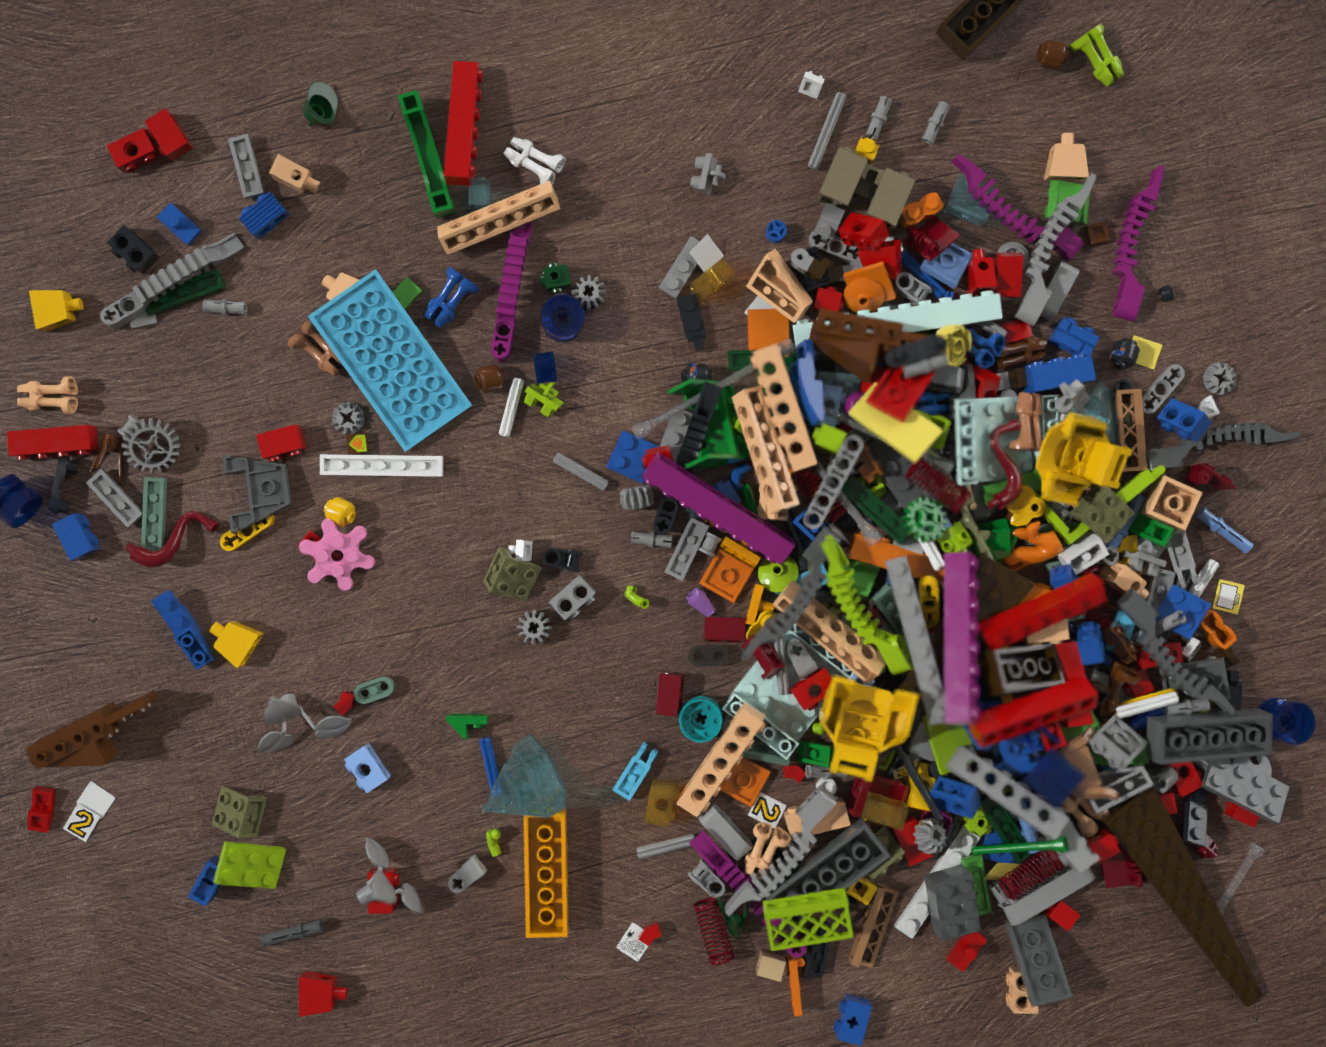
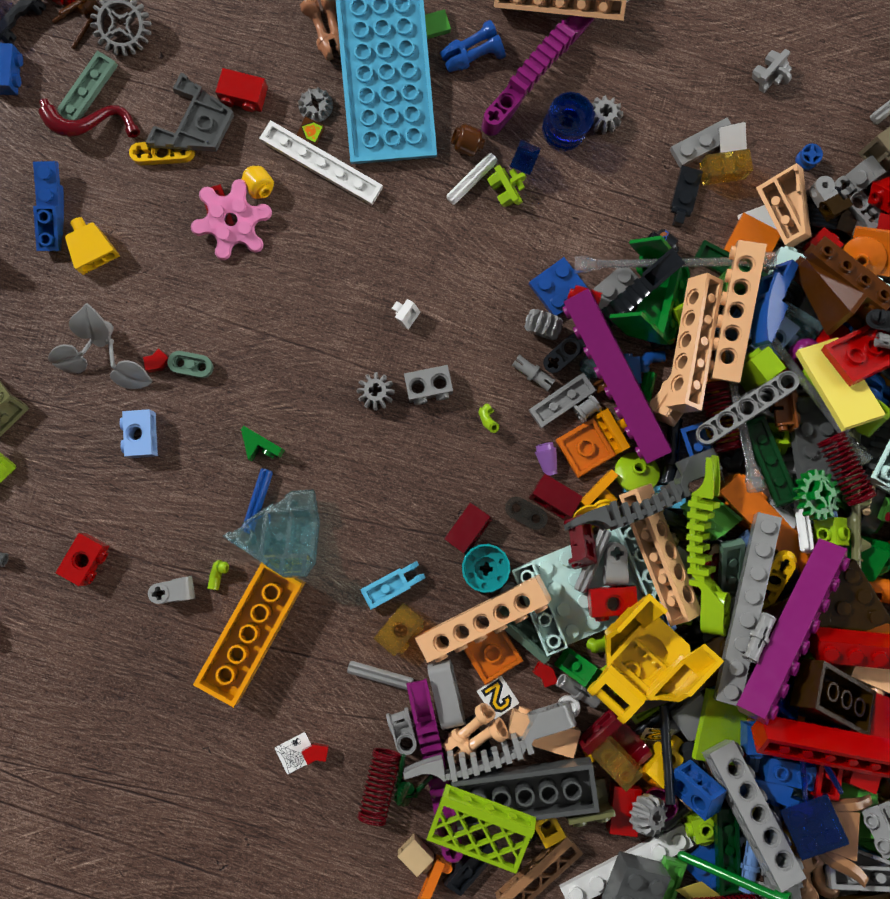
camera: 25 degrees right, 5 degrees down
(115, 498) = (59, 55): light grey plate -> none
(379, 887) = (80, 551): light grey plant -> none
(511, 576) = (382, 331): olive bracket -> none
(562, 282) = (582, 81): dark green brick -> none
(564, 559) = (440, 344): black piece -> none
(580, 471) = (503, 273): light grey axle -> none
(936, 660) = (759, 637): none -> light grey pin

